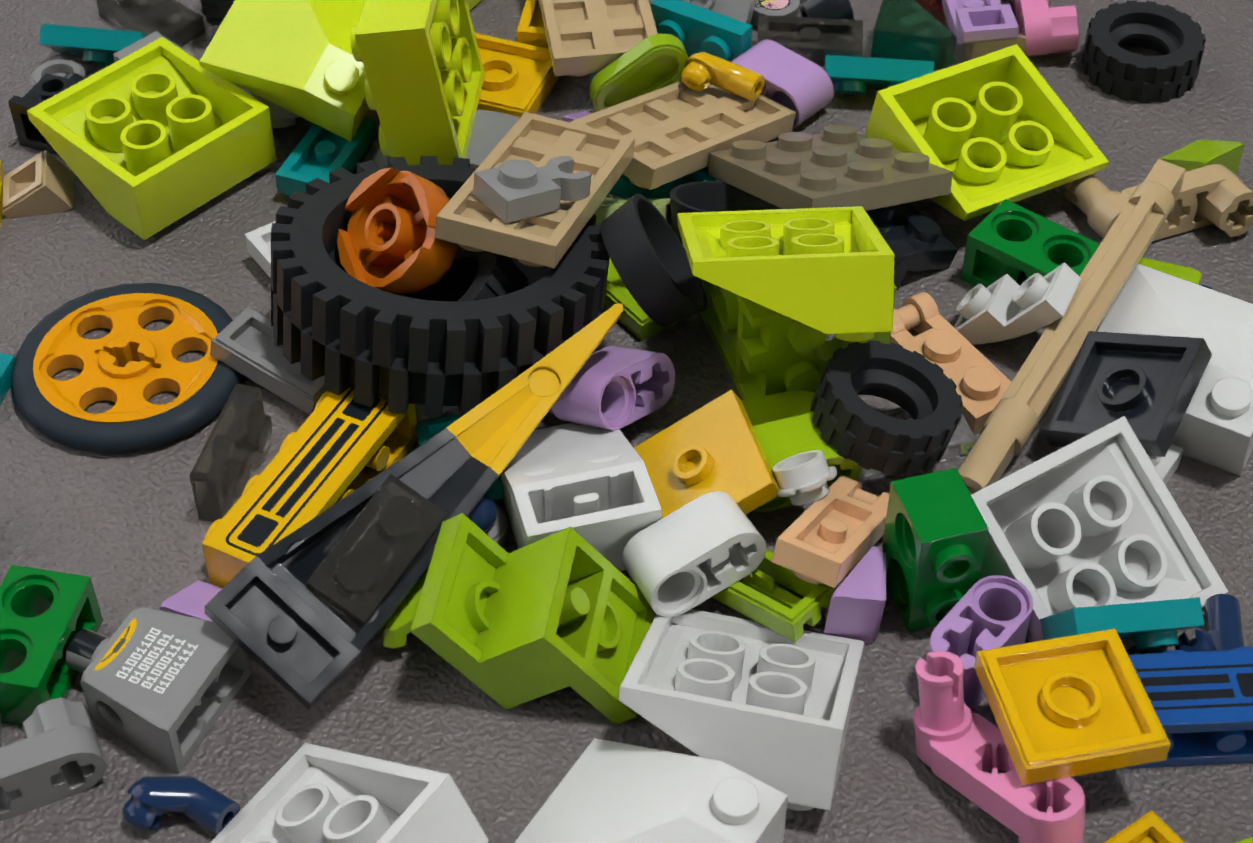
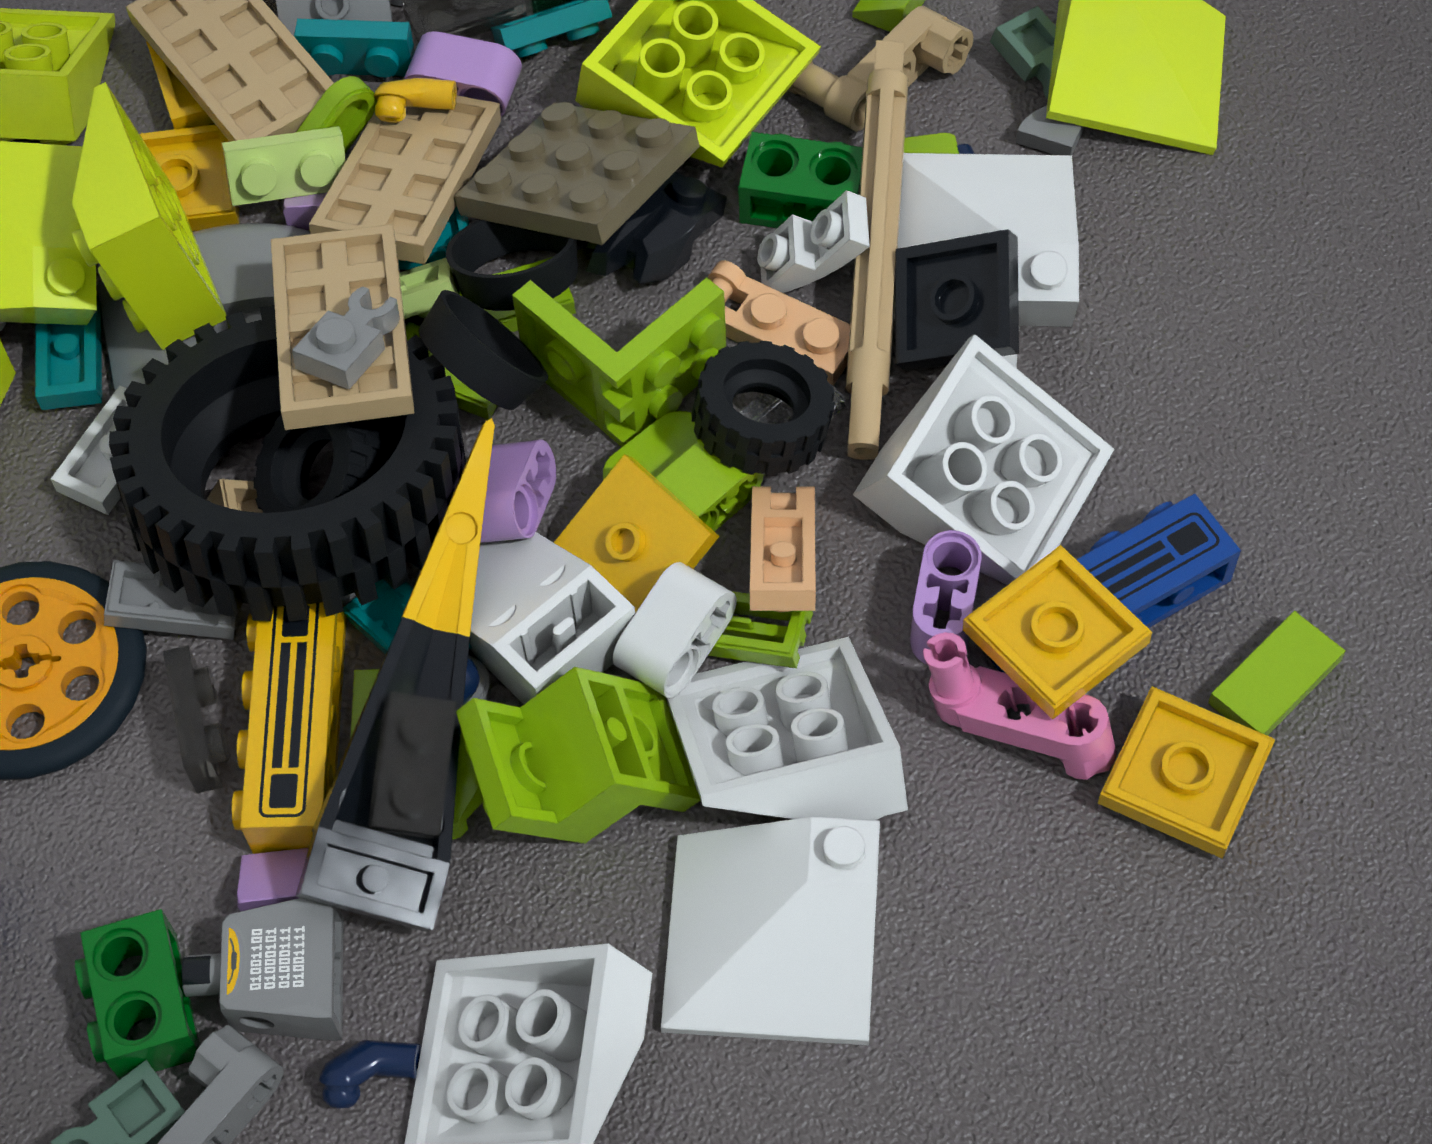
camera: 25 degrees left, 15 degrees up
(393, 233) = (230, 433): orange cylinder -> none
(578, 82) = (283, 165): none -> yellowish green plate
(802, 262) = (629, 311): neon yellow slope -> none
(804, 477) = (730, 511): white plate -> none
(859, 600) = (835, 603): lavender slope -> none
(931, 546) = (873, 533): green brick -> none
(1148, 623) = (1070, 519): teal plate -> none
(1222, 626) = (1131, 498): dark blue arm -> none

